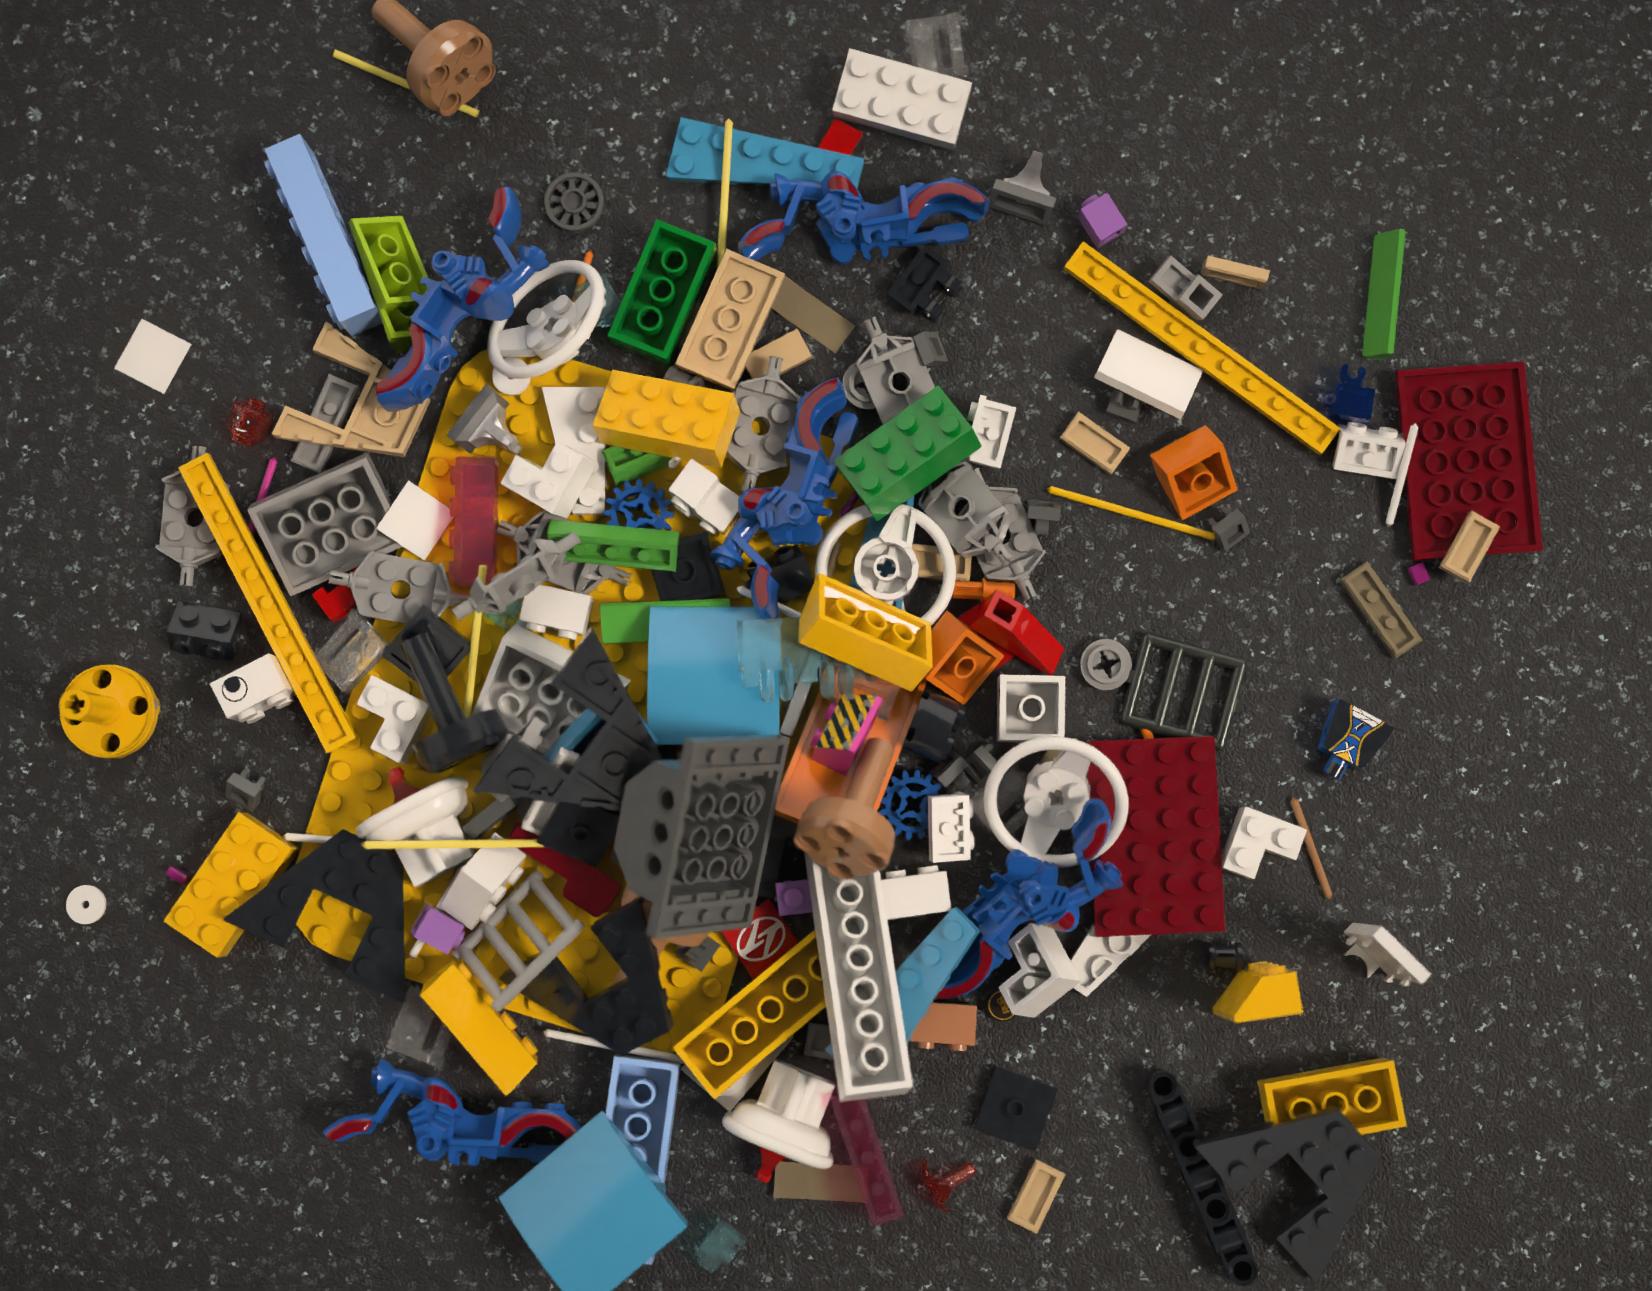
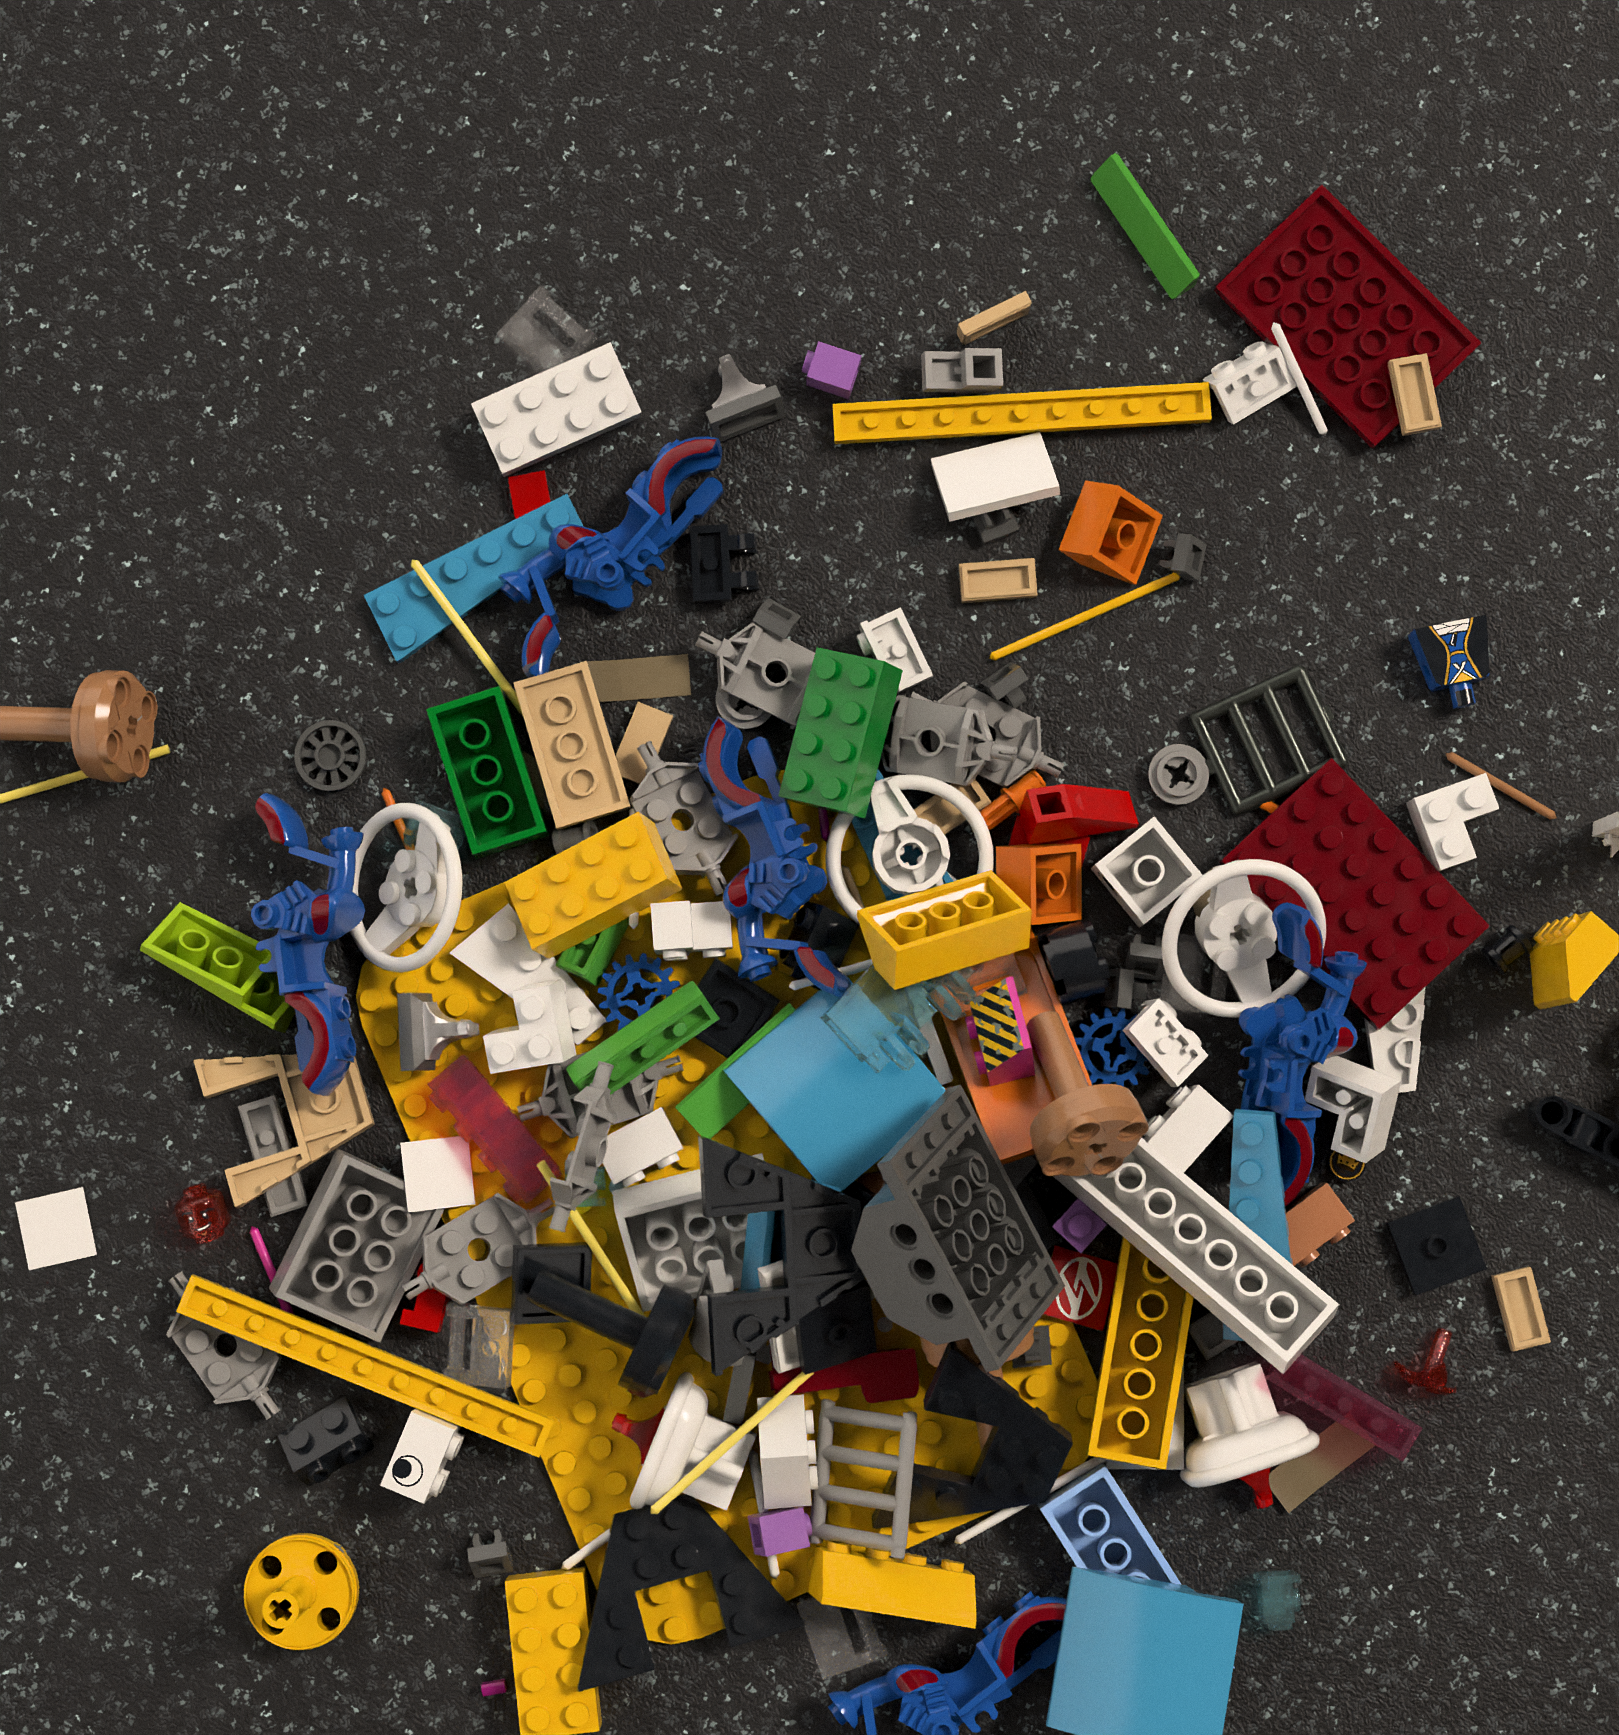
camera: 45 degrees left, 0 degrees up
(324, 233) = (122, 978): light blue brick -> none
(403, 715) = (580, 1361): white brick -> none
(509, 386) = (415, 978): white wheel -> none
(1348, 399) = (1196, 349): clear blue brick -> none
(1380, 610) = (1382, 517): dark tan tile -> none
(1418, 574) = (1388, 456): magenta piece -> none

